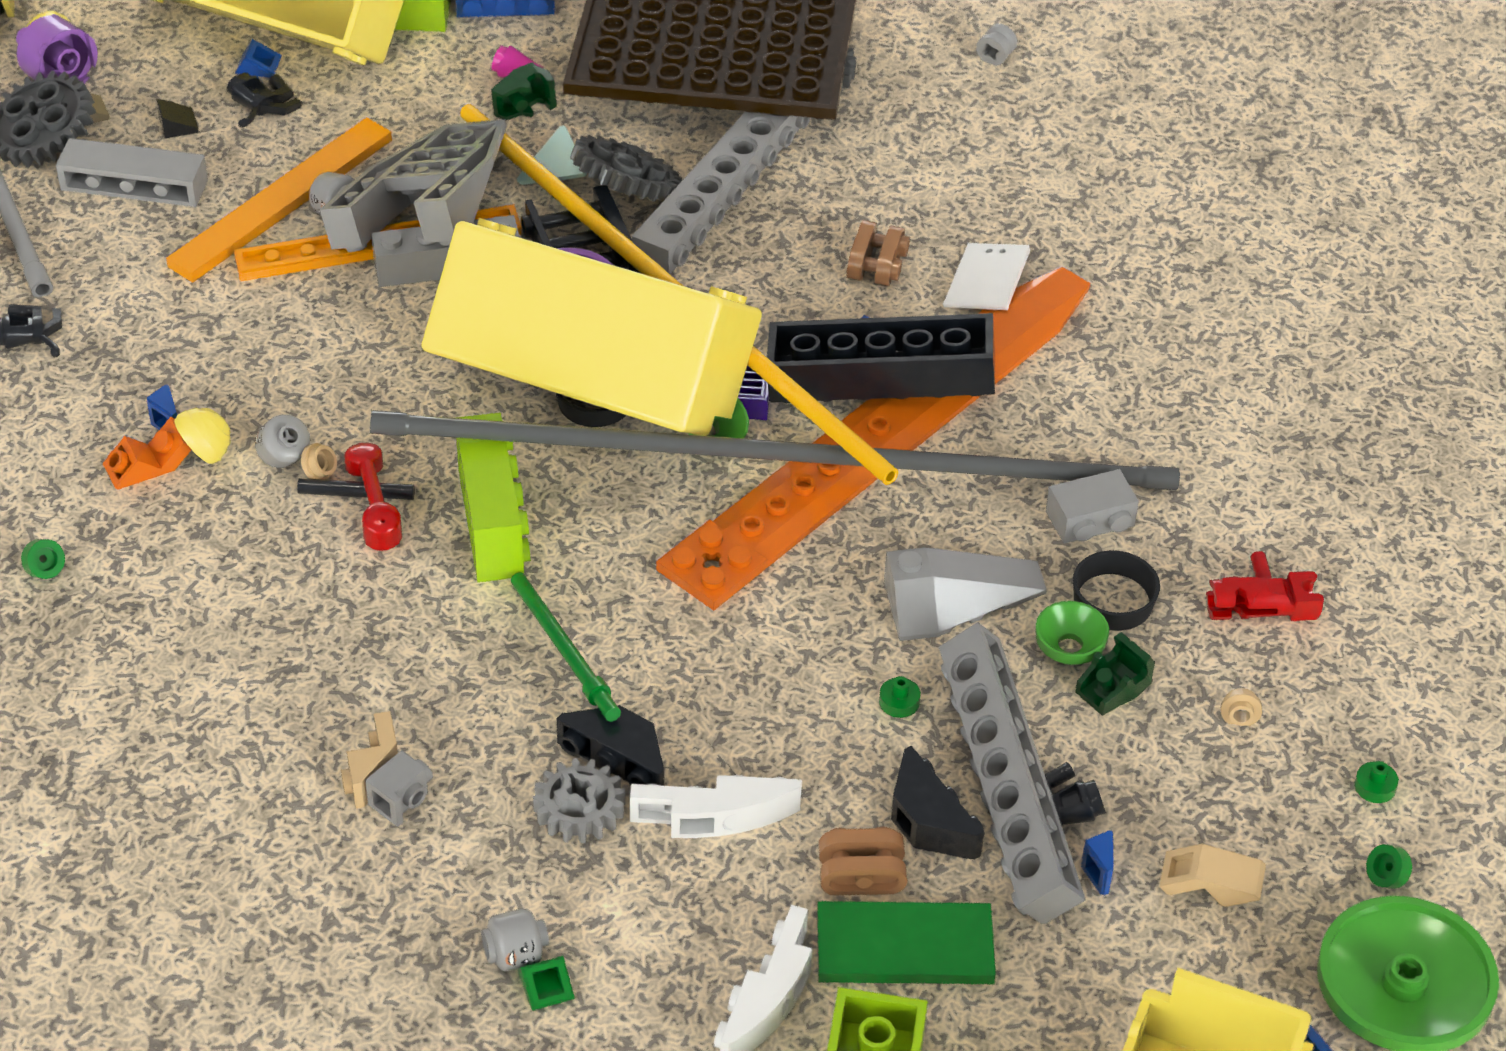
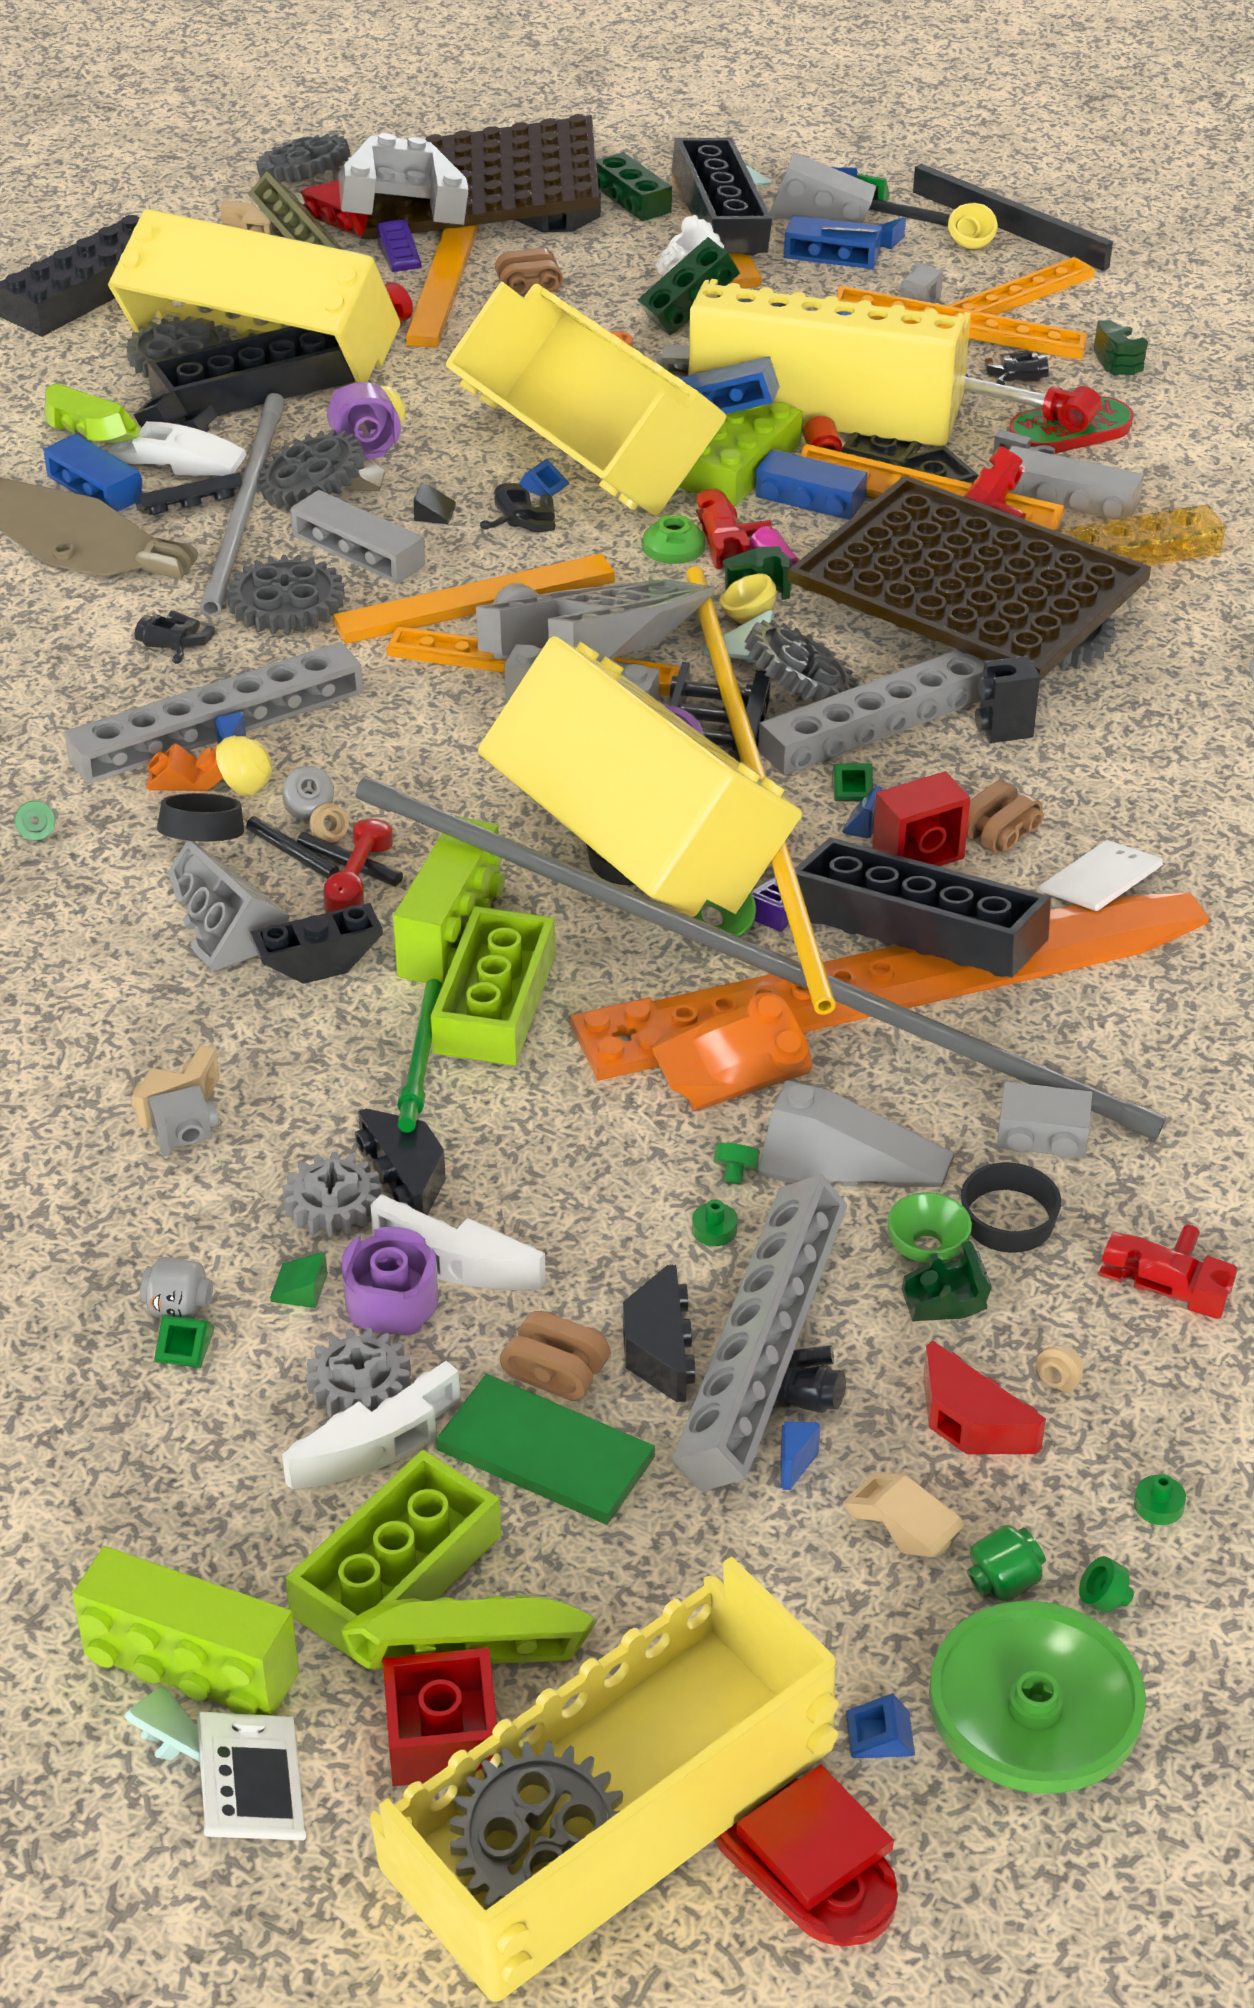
camera: 30 degrees right, 5 degrees down
(107, 252) = (285, 594): none -> dark grey gear
(119, 400) = (189, 718): none -> light grey brick
(195, 514) = (200, 817): none -> black tyre
(291, 582) = (220, 907): none -> light grey wedge
(296, 497) = (291, 847): none -> black bar
(402, 577) = (318, 944): none -> black slope
(418, 90) = (673, 540): none -> bright green piece
(462, 63) = (721, 526): none -> red piece
(532, 119) = (749, 597): none -> light yellow piece
(582, 559) = (493, 986): none -> lime brick
(605, 887) = (301, 1281): none -> green slope
(690, 856) = (390, 1281): none -> medium lavender brick
(718, 946) = (357, 1371): none -> light grey gear
(733, 262) = (852, 781): none -> green slope
(765, 288) = (862, 817): none -> blue slope
(817, 540) = (734, 1052): none -> orange slope
(819, 143) = (1008, 699): none -> black brick
(829, 279) = (923, 820): none -> red brick
(881, 635) = (736, 1159): none -> green tile
(1202, 768) = (975, 1409): none -> red slope
(1311, 881) = (1006, 1563): none -> green head

